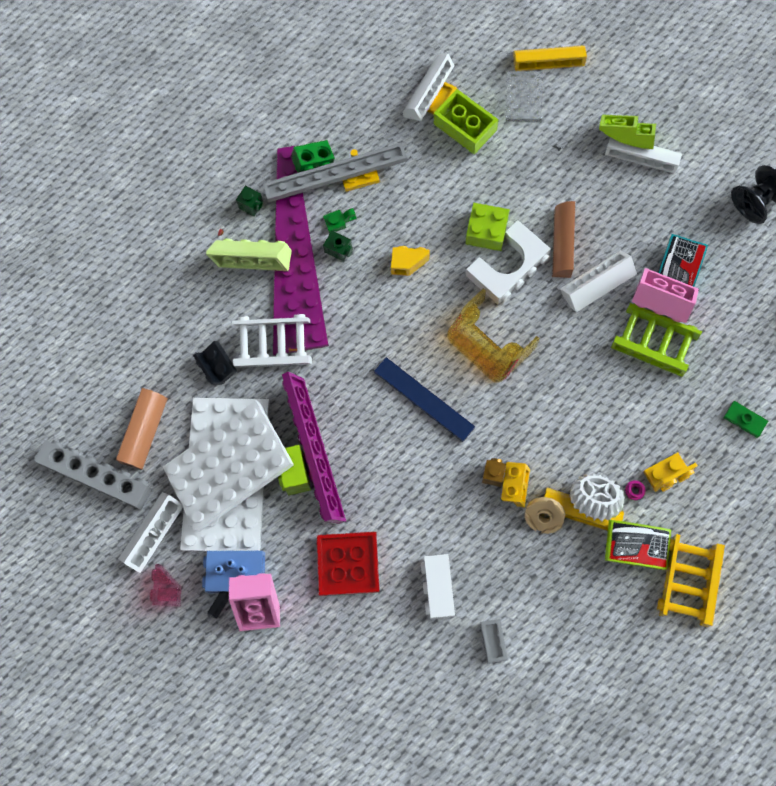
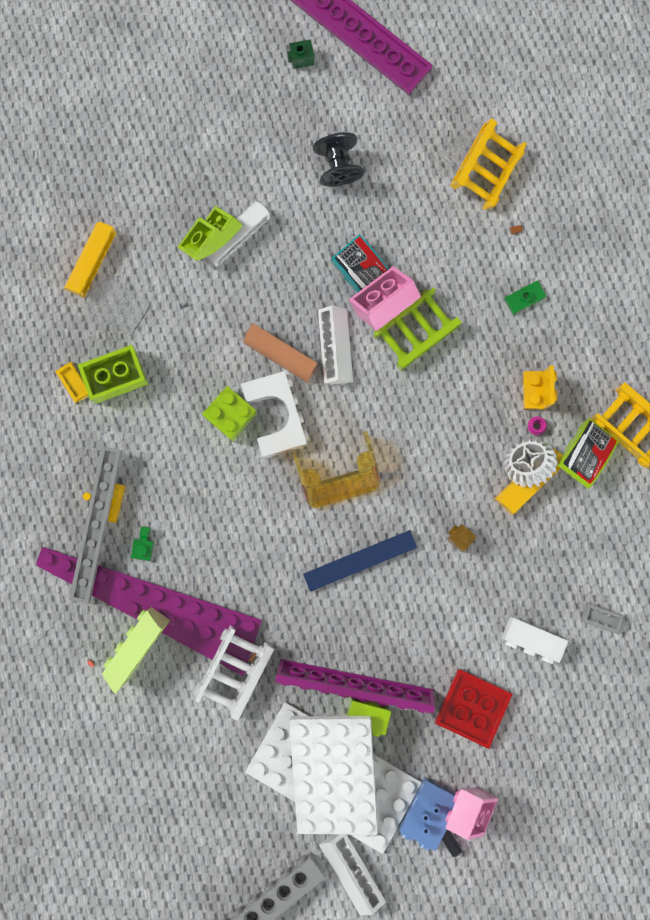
camera: 70 degrees left, 10 degrees up
(141, 429) = (250, 836): nougat brick -> none
(166, 589) = (412, 884): clear pink slope -> none
(215, 364) = (224, 736): black bracket -> none
(249, 201) = (77, 620): dark green brick -> none
(312, 153) = (62, 537): green brick -> none
(338, 246) = (171, 560): dark green brick -> none
(408, 260) = (221, 504): yellow slope -> none
(429, 87) = (56, 388): white brick -> none
(515, 483) = (481, 525): yellow bracket -> none
(547, 506) = (523, 507): tan tile -> none

